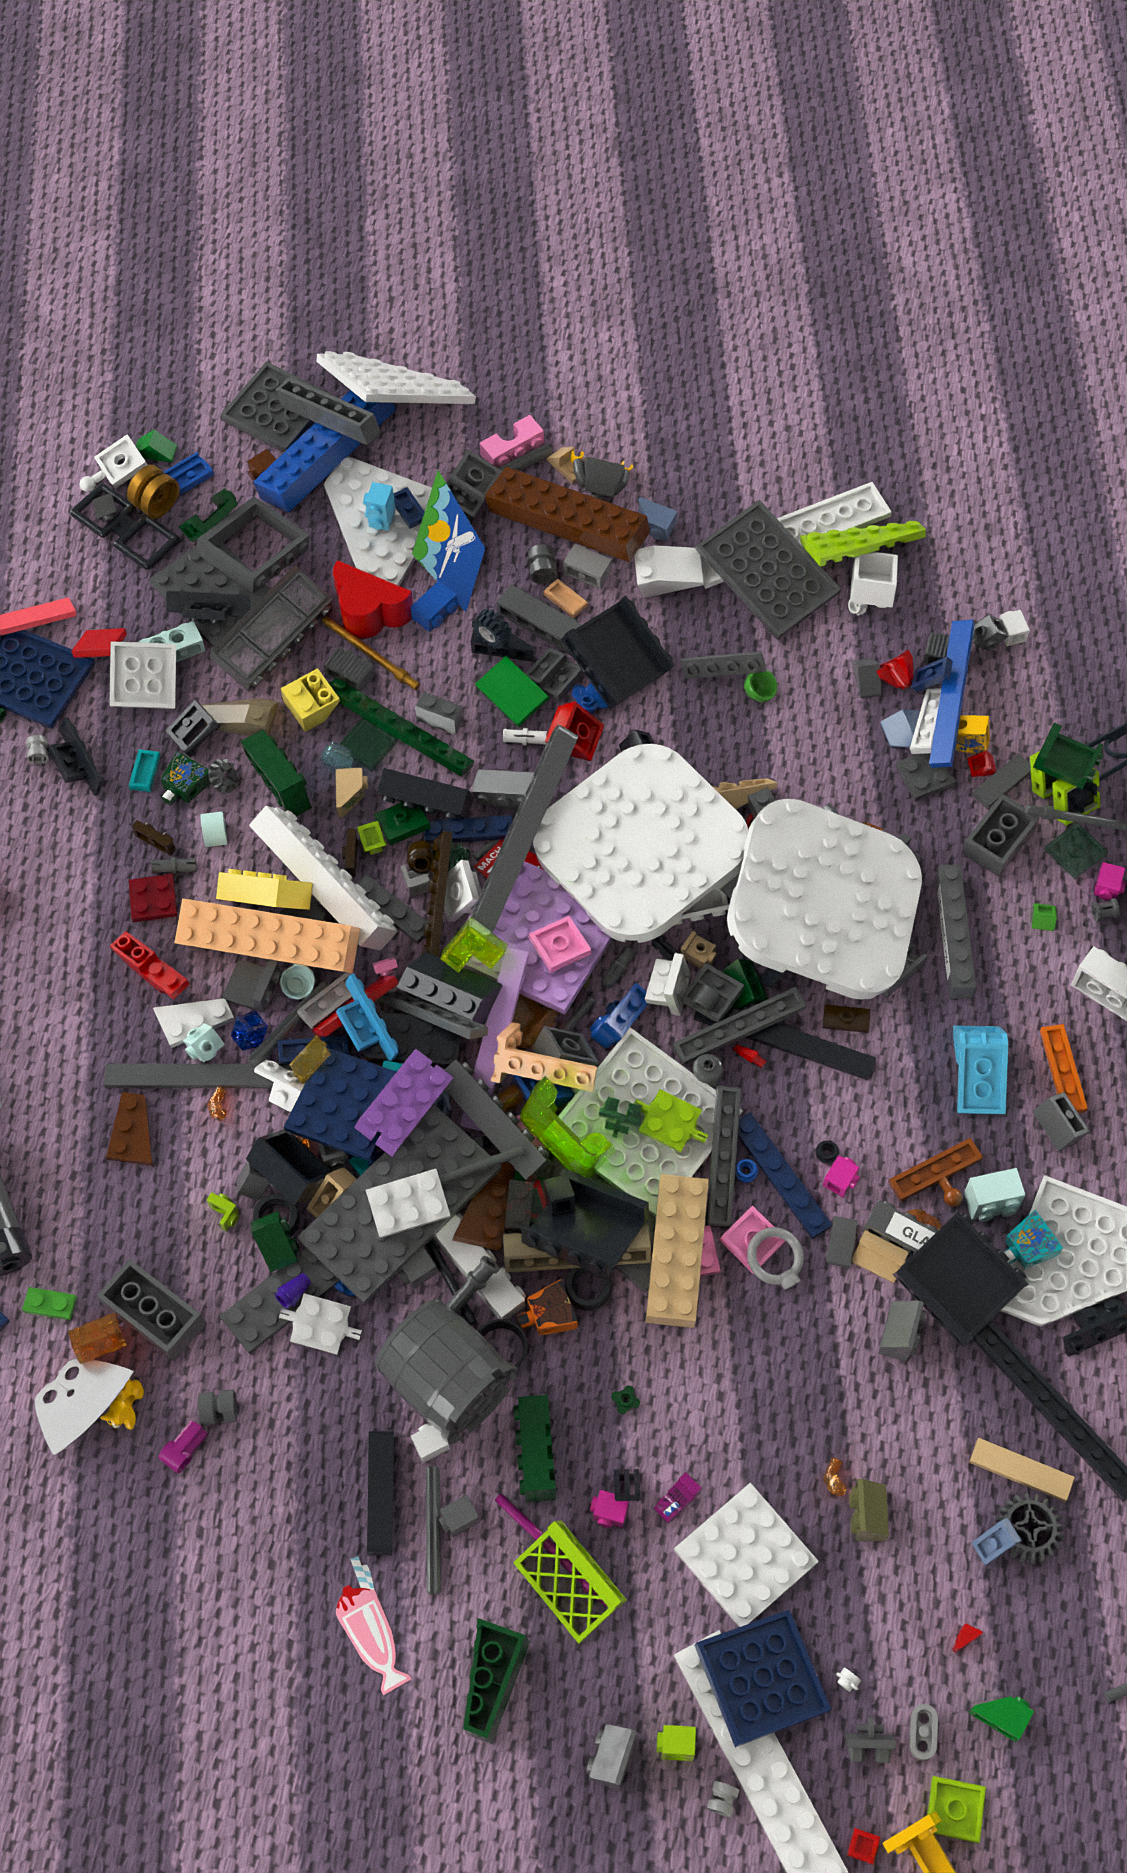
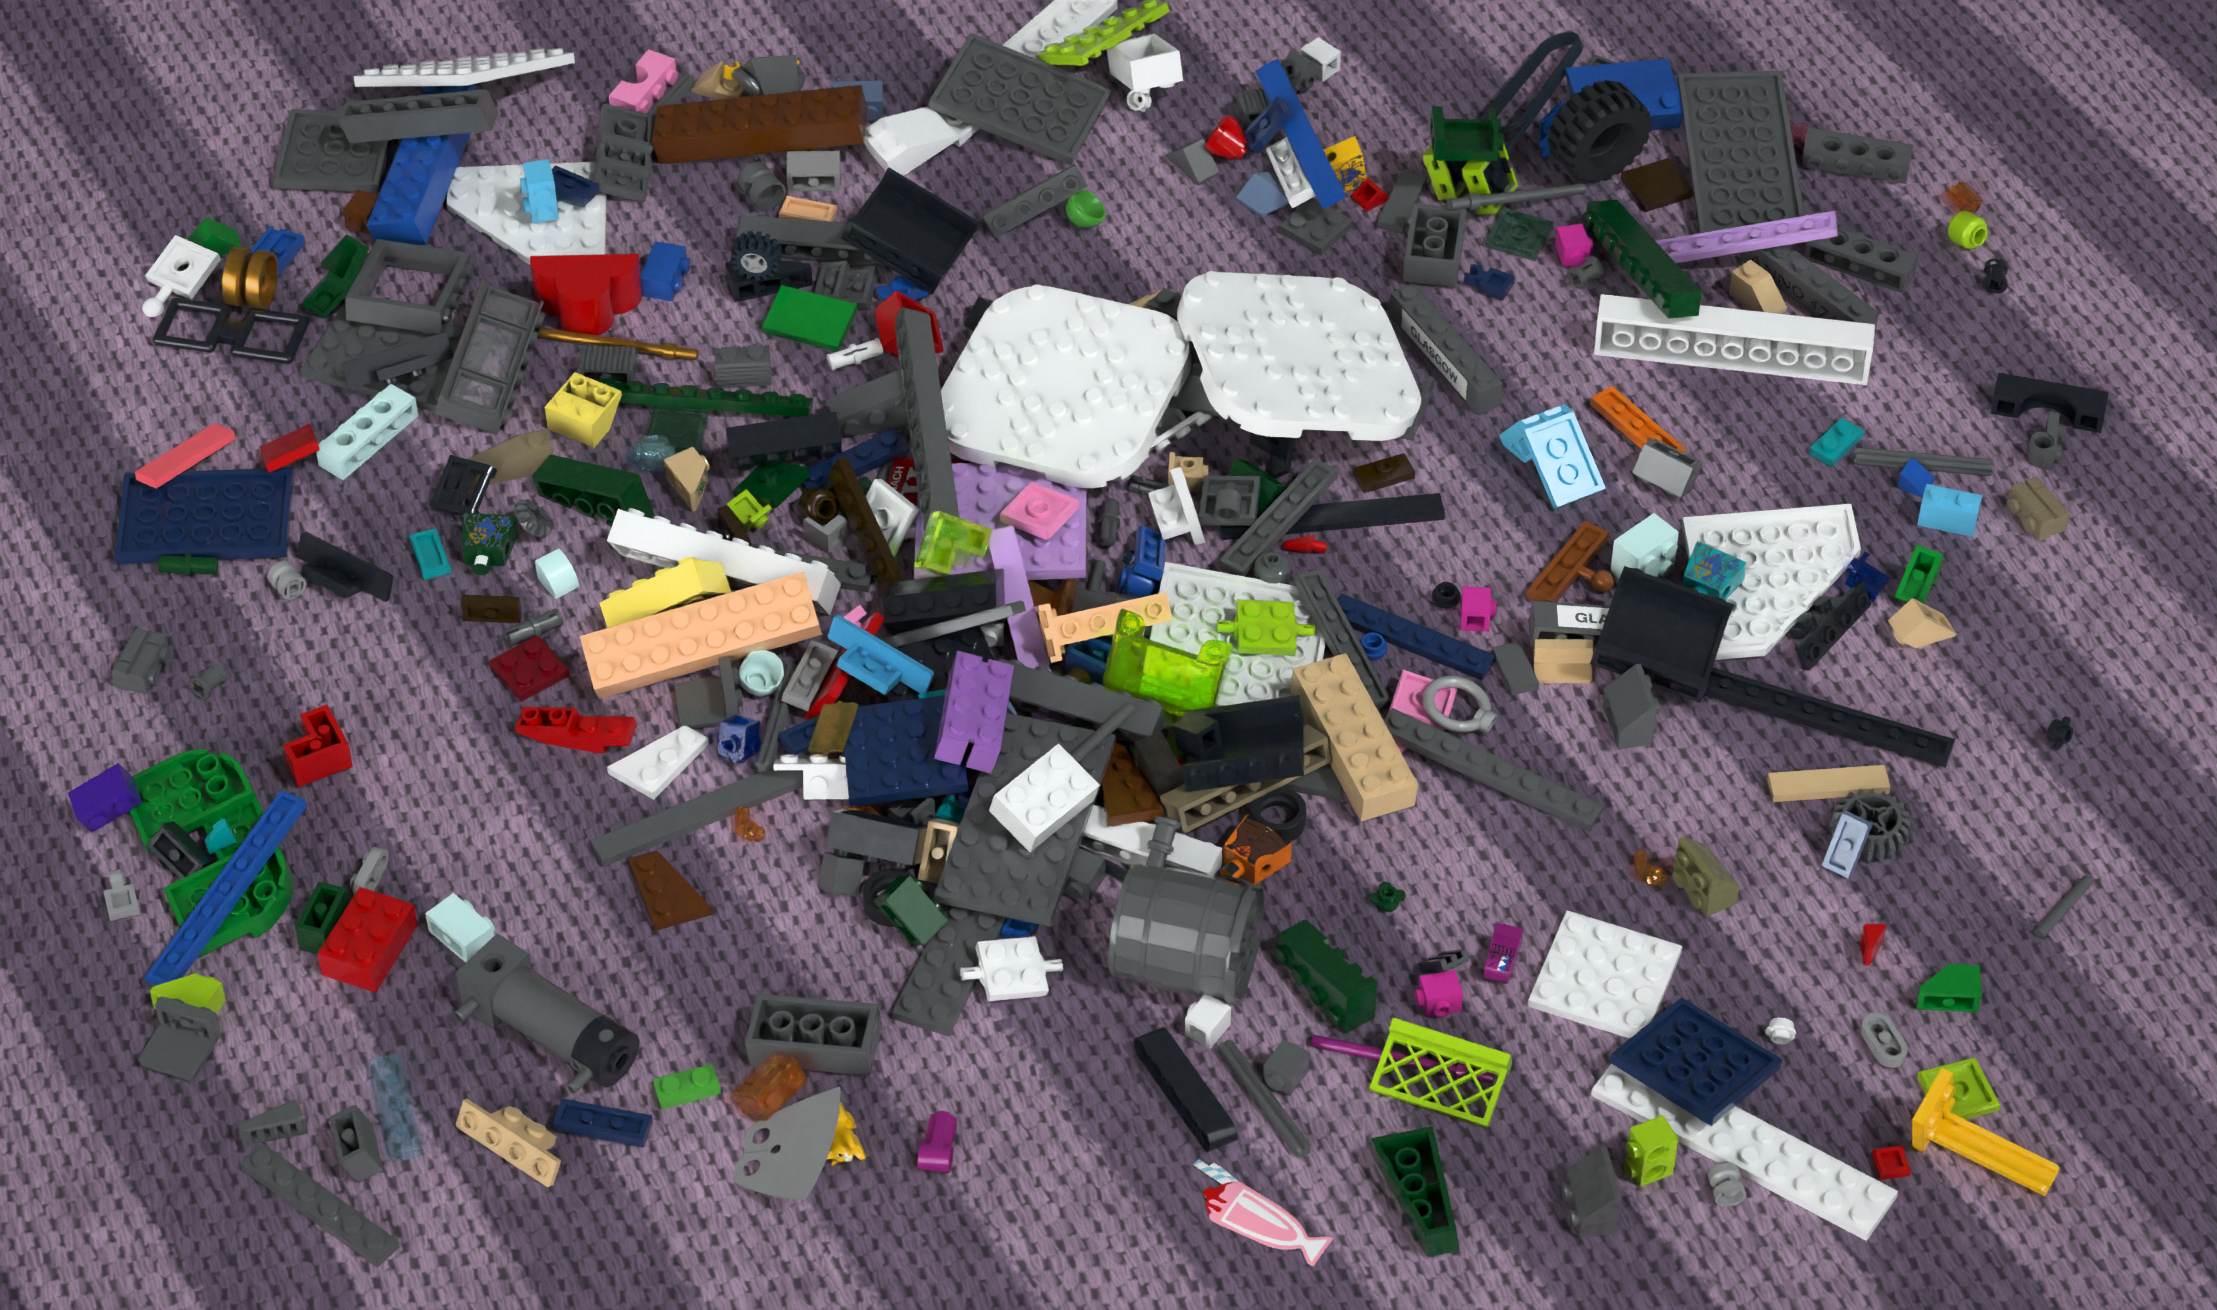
camera: 30 degrees left, 15 degrees down
(105, 507) = (196, 319): dark grey bracket -> none
(142, 675) = (368, 456): white plate -> none
(203, 1043) = (693, 771): light aqua brick -> none
(217, 1407) = (953, 1089): dark grey wheel -> none
(224, 1205) = (826, 912): lime bracket -> none
(292, 1291) = (962, 947): dark purple cone -> none
(448, 543) = (638, 202): sticker -> none
(610, 1111) = (1223, 631): clear green hips -> none
(767, 1327) = (1493, 770): none -> dark grey plate
(881, 1742) = (1827, 1077): dark grey hips -> none
(1027, 886) = (1493, 283): none -> dark blue plate
(1044, 917) = (1526, 305): bright green slope -> none

